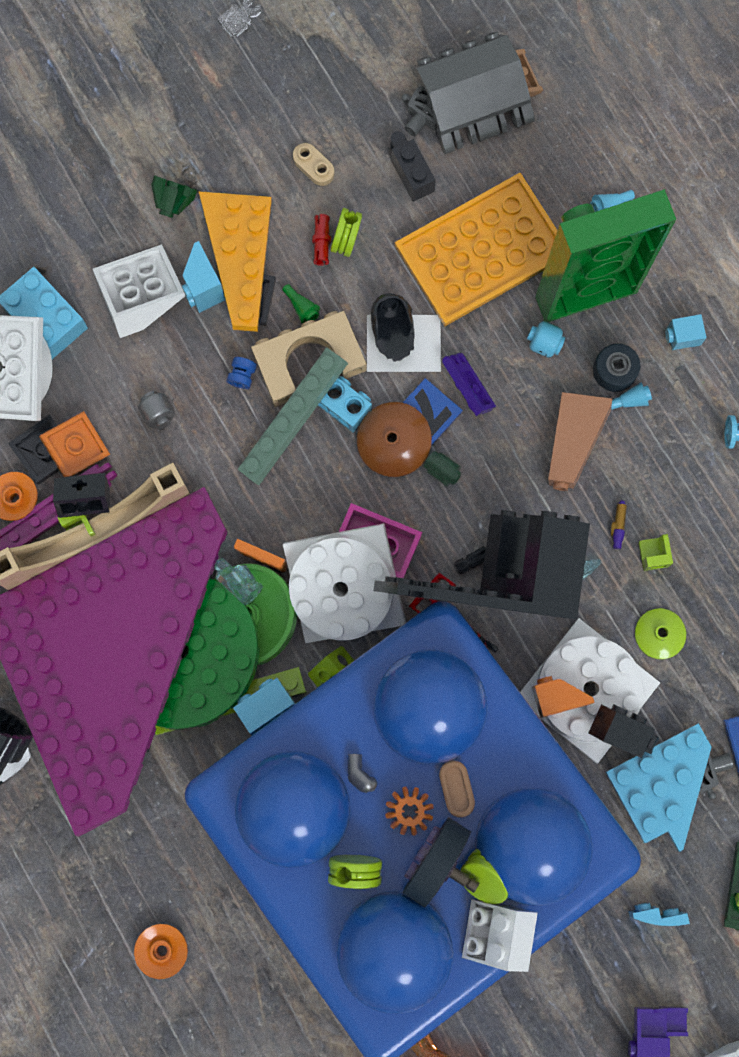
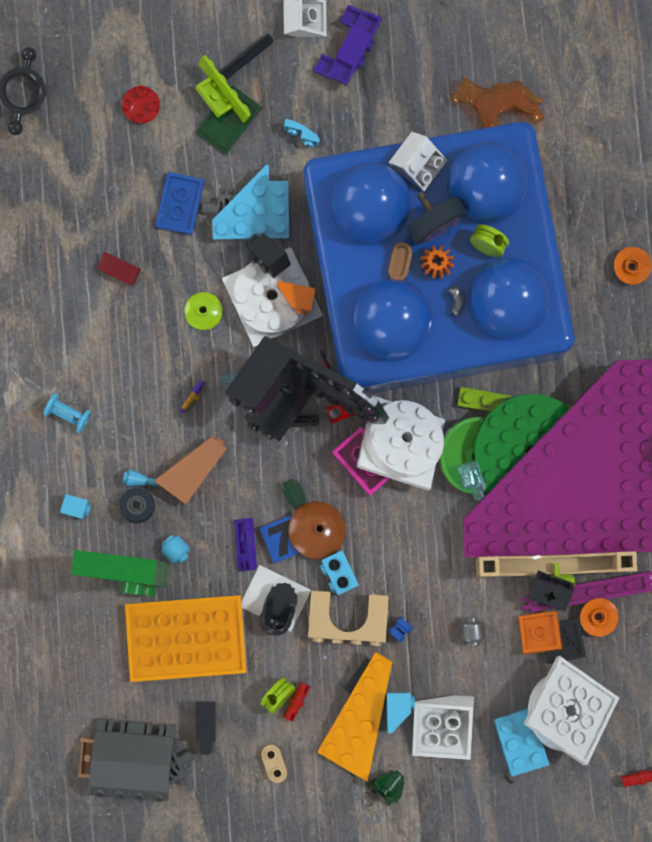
camera: 155 degrees left, 5 degrees up
(261, 555) = (448, 490): orange tile -> none
(264, 705) = (492, 385): medium azure slope -> none
(293, 416) = (379, 578): sand green plate -> none
(304, 307) = (333, 656): green cone -> none
(329, 666) = (437, 392): lime bracket -> none
(491, 888) = (413, 204): lime head -> none
(607, 200) = (81, 629): medium azure cone -> none
(656, 553) = (179, 365): lime panel -> none

